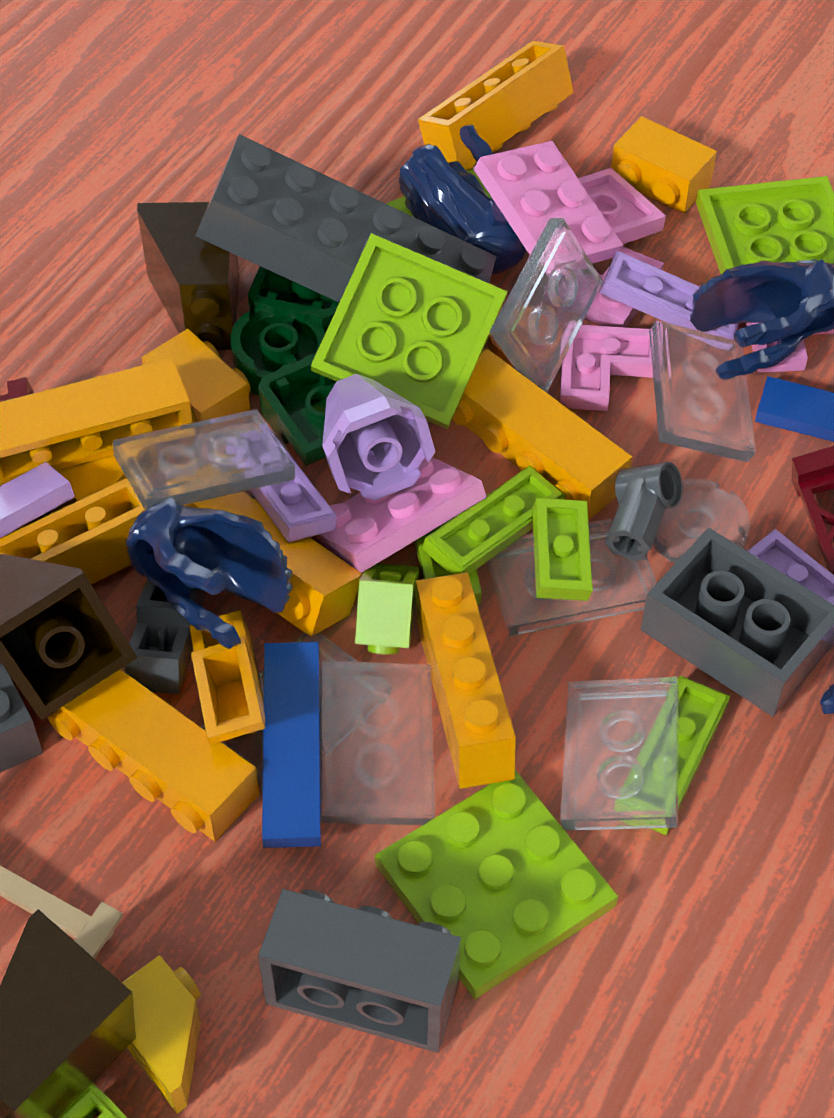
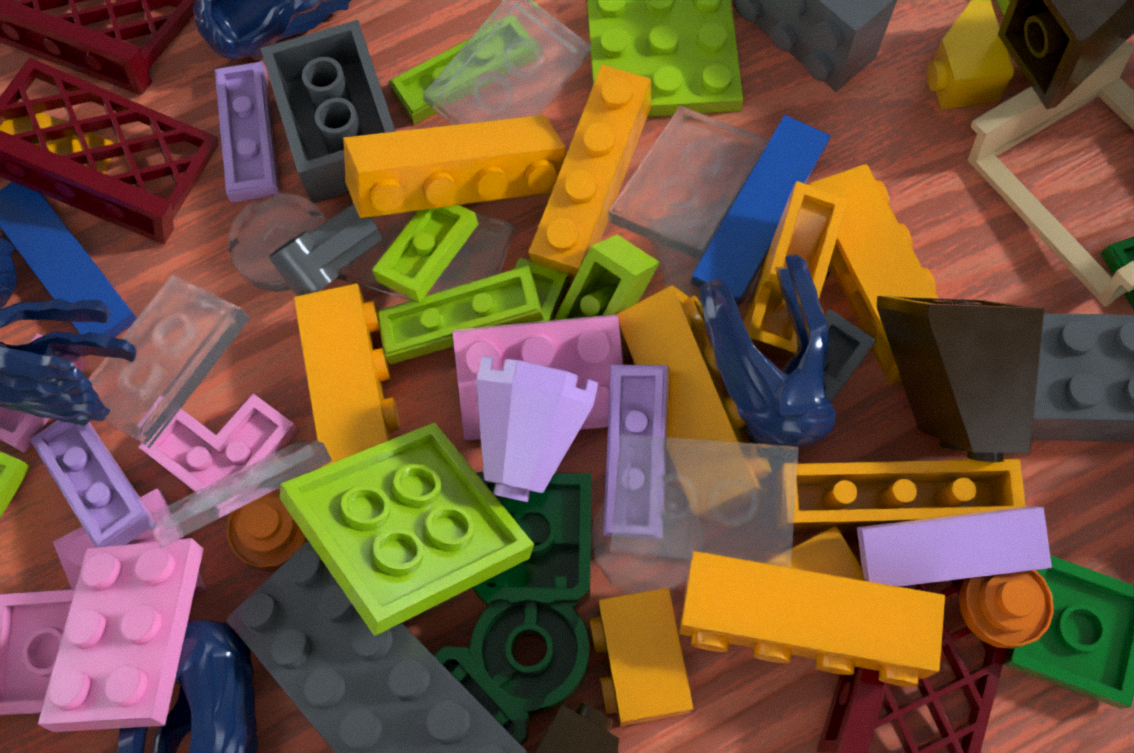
camera: 145 degrees left, 15 degrees up
(587, 609) = (452, 165): none -> light orange brick

